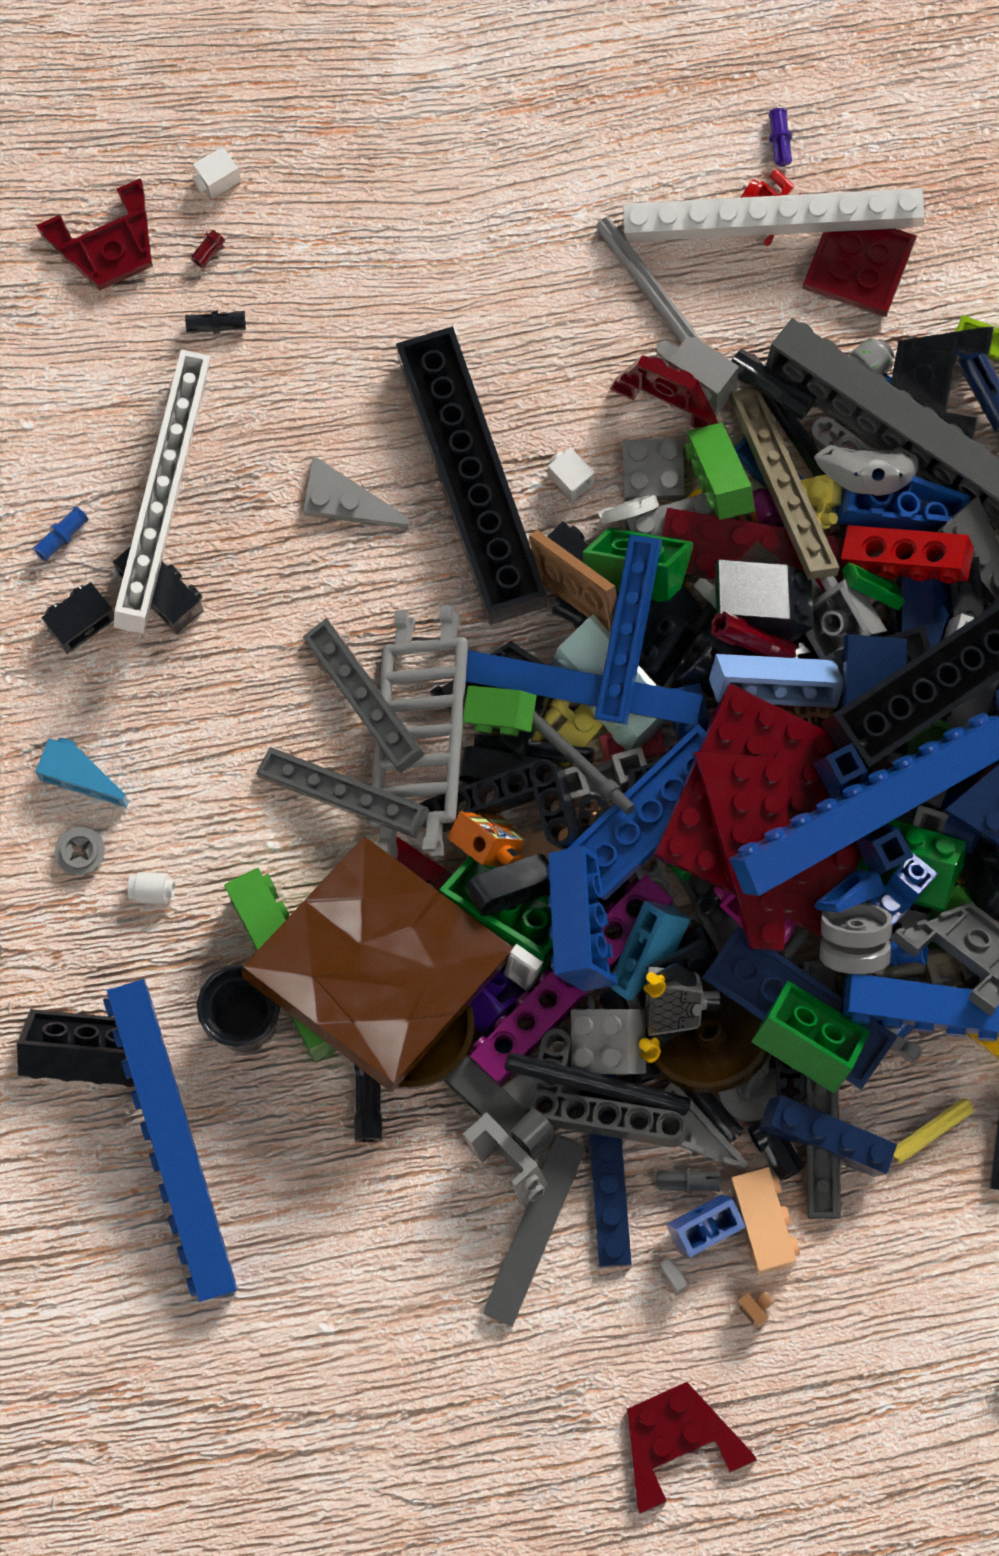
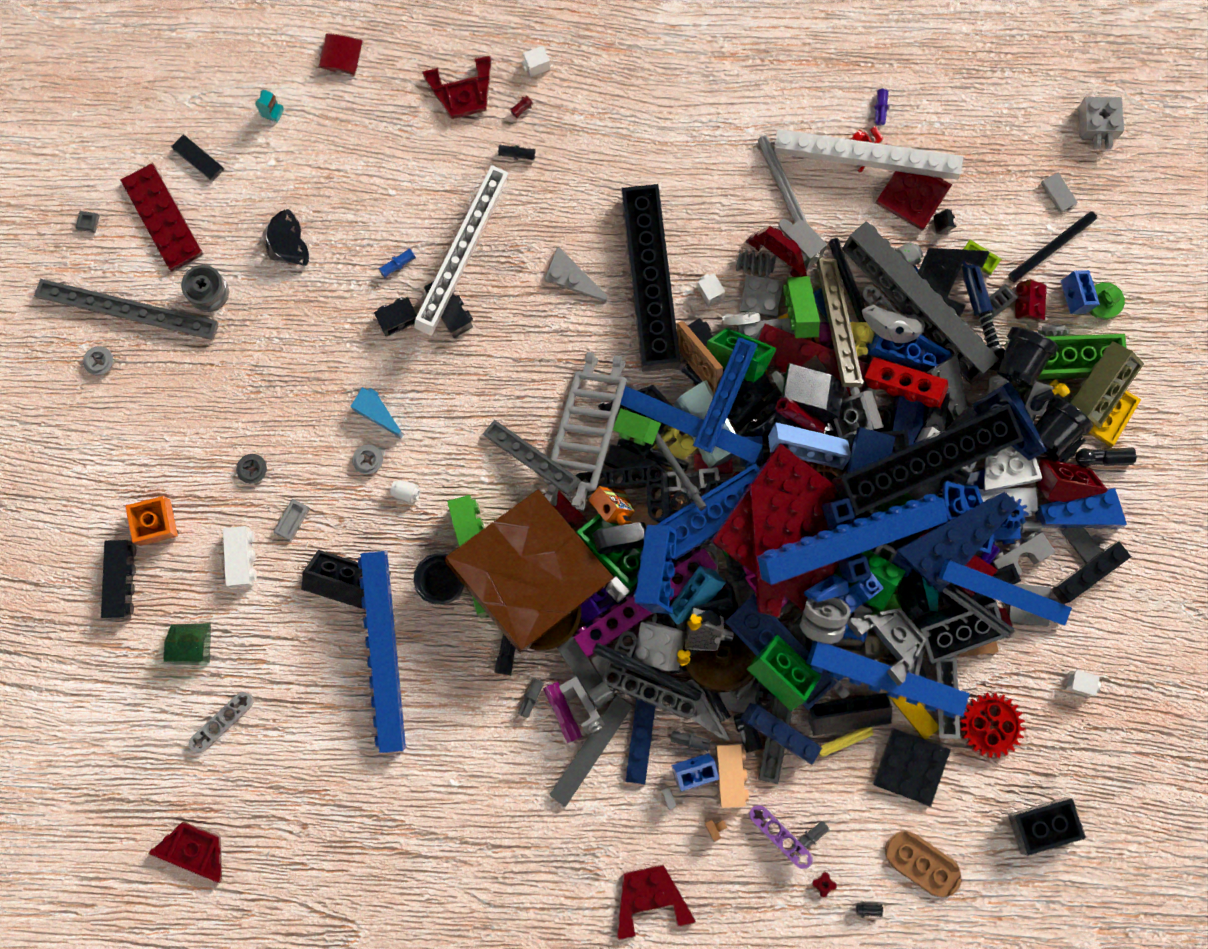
camera: 10 degrees right, 5 degrees up
(363, 695) = (557, 400): dark grey tile -> none
(421, 1168) = (531, 698): none -> dark grey axle
(485, 1191) = (561, 709): none -> magenta axle
(633, 418) = (755, 262): none -> dark grey piece
(790, 396) = (855, 269): black axle -> none
(862, 1296) = (781, 836): none -> medium lavender beam
(873, 586) = (881, 398): green tile -> none
(909, 1290) = (813, 835): none -> dark grey axle
(916, 295) = (944, 221): none -> black tile
(929, 1085) = (850, 714): none -> black brick
(955, 1358) = (818, 883): none -> dark red plate

